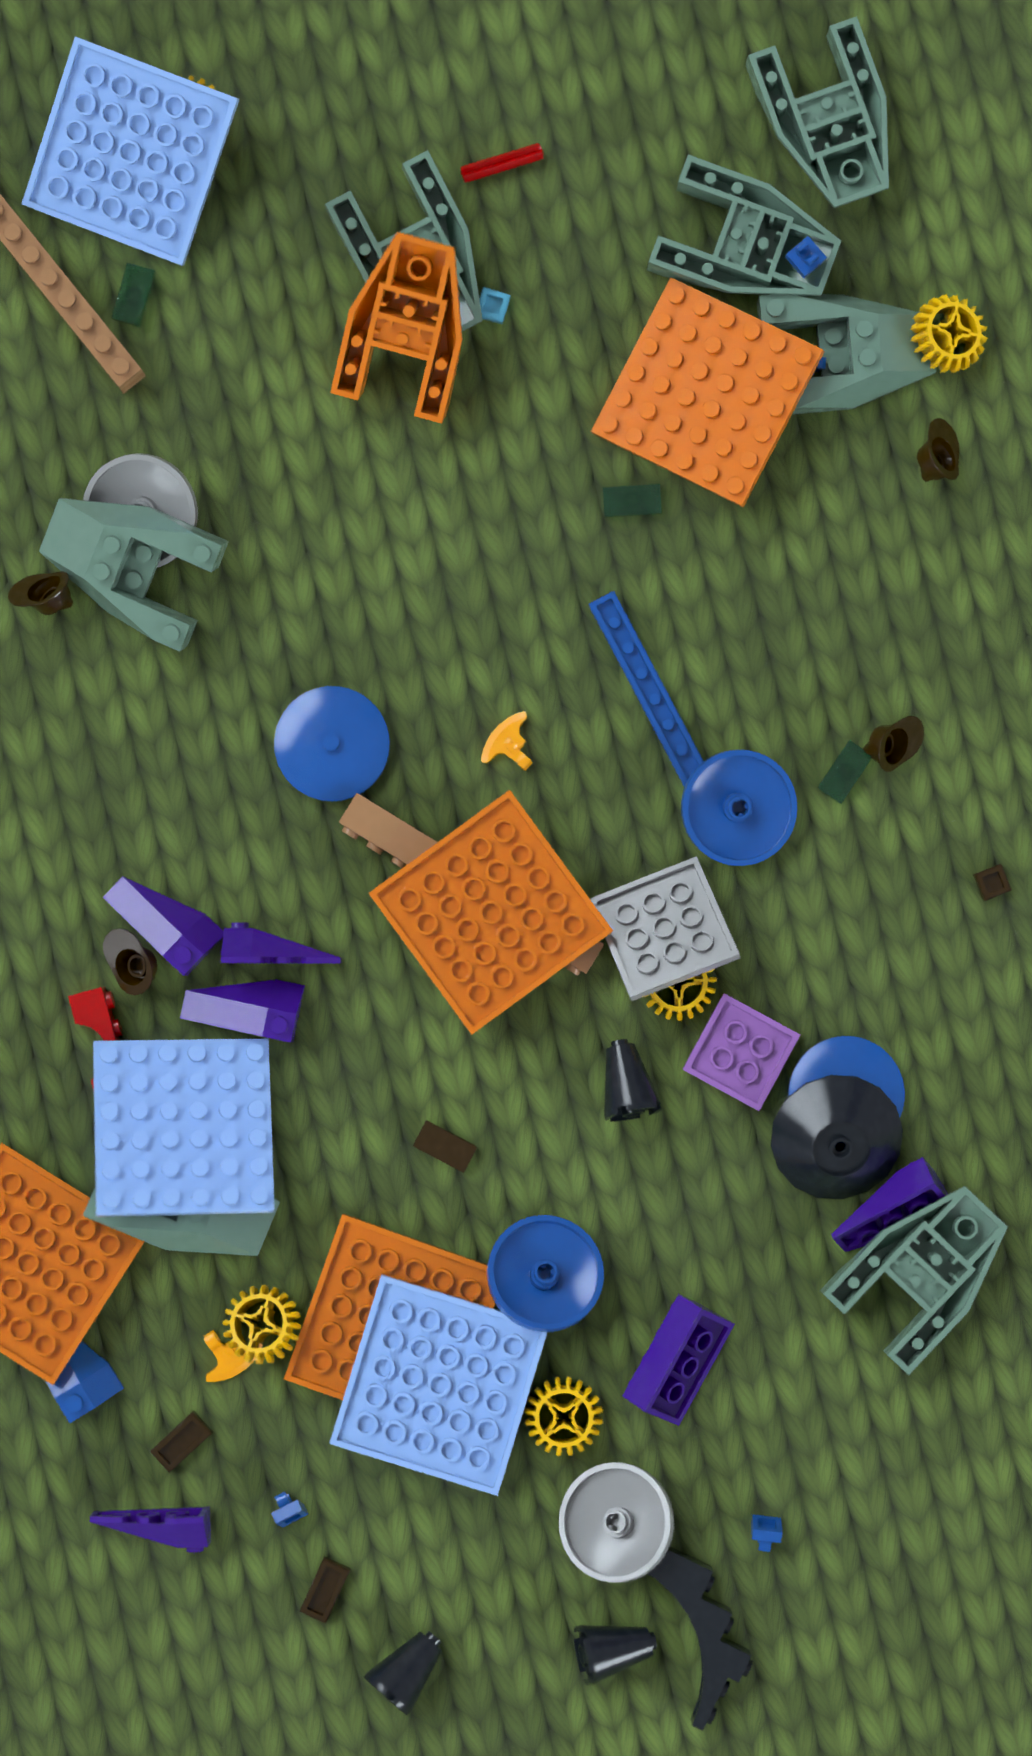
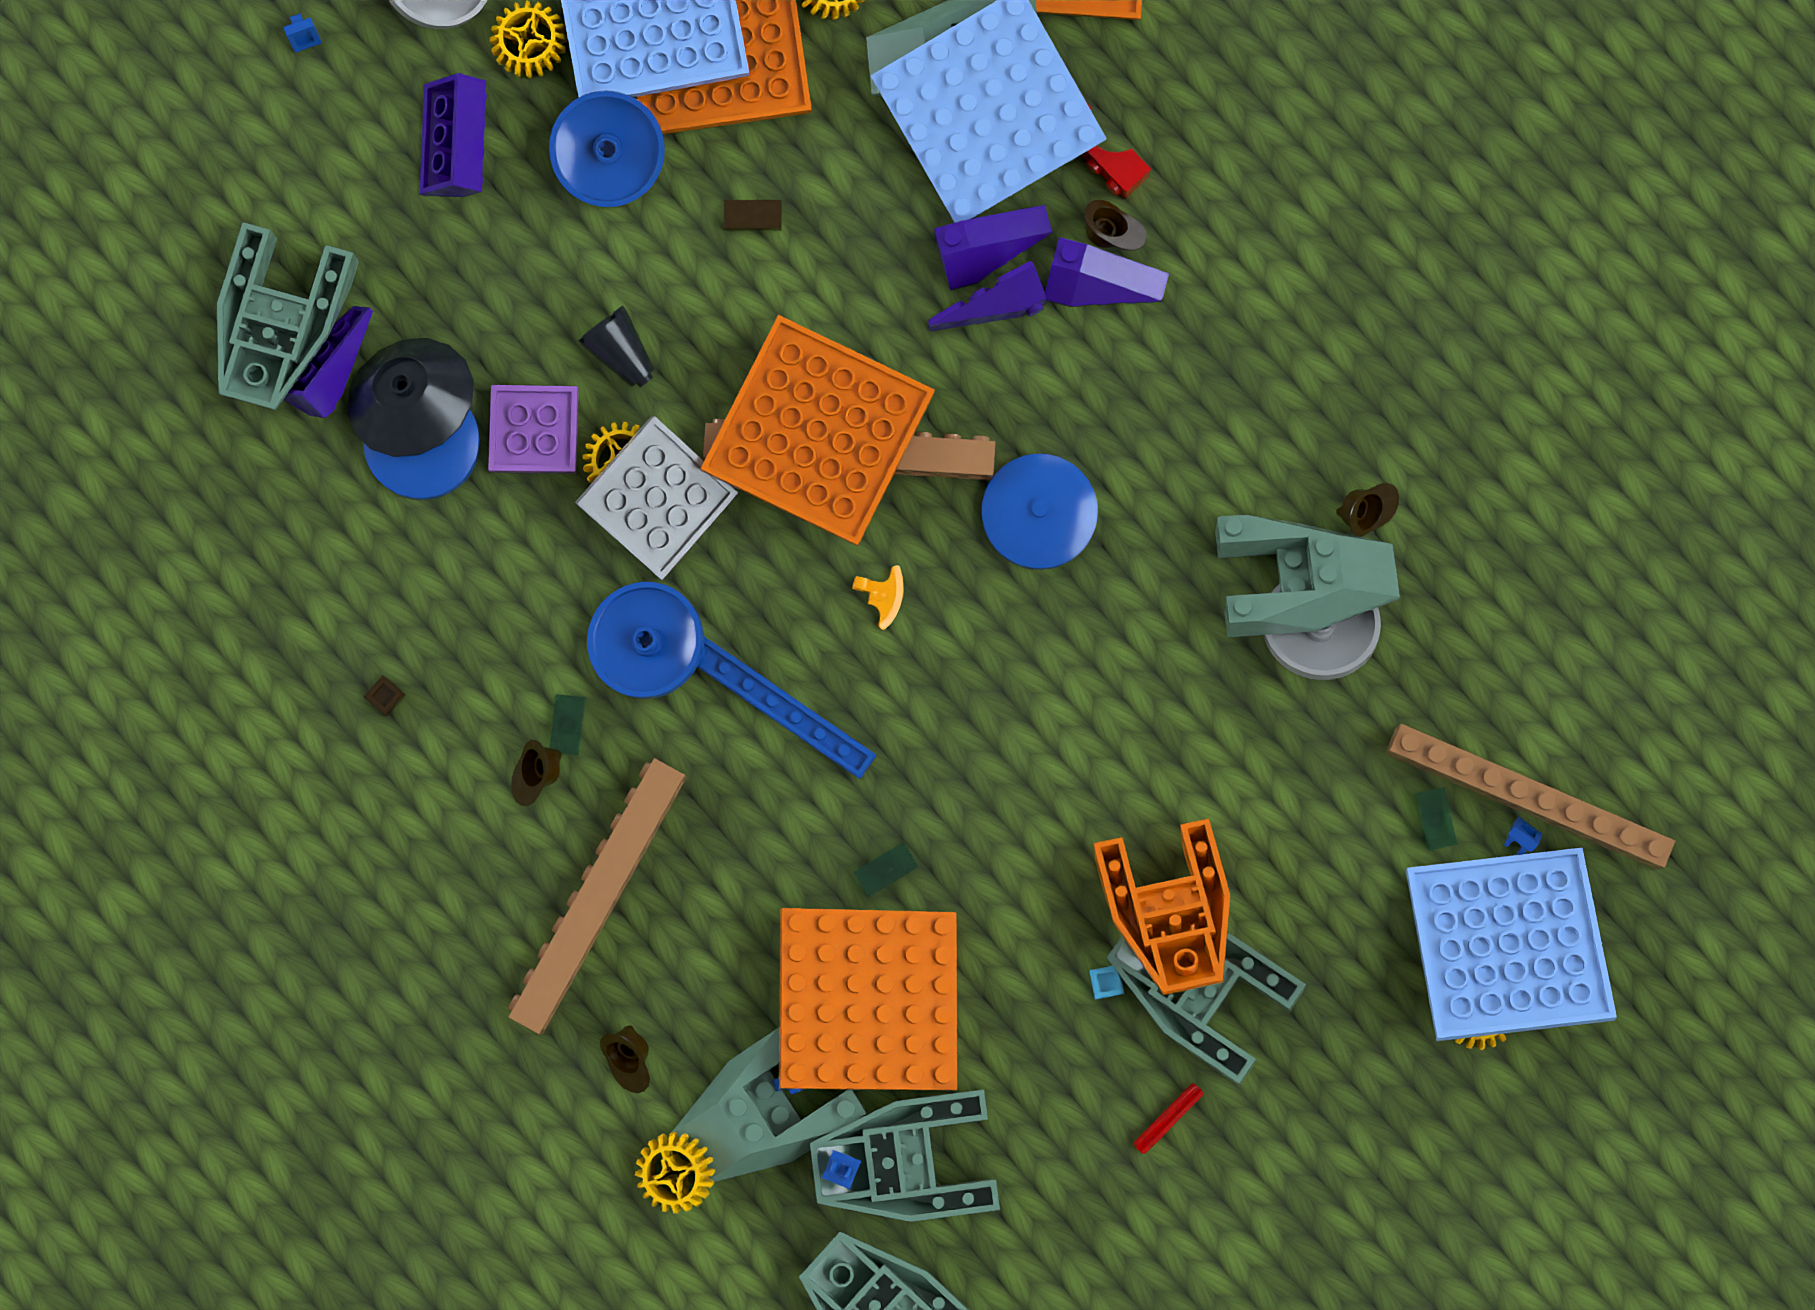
camera: 150 degrees right, 5 degrees down
(64, 240) = (1524, 834): none -> blue tile
(894, 606) = (597, 896): none -> medium nougat brick

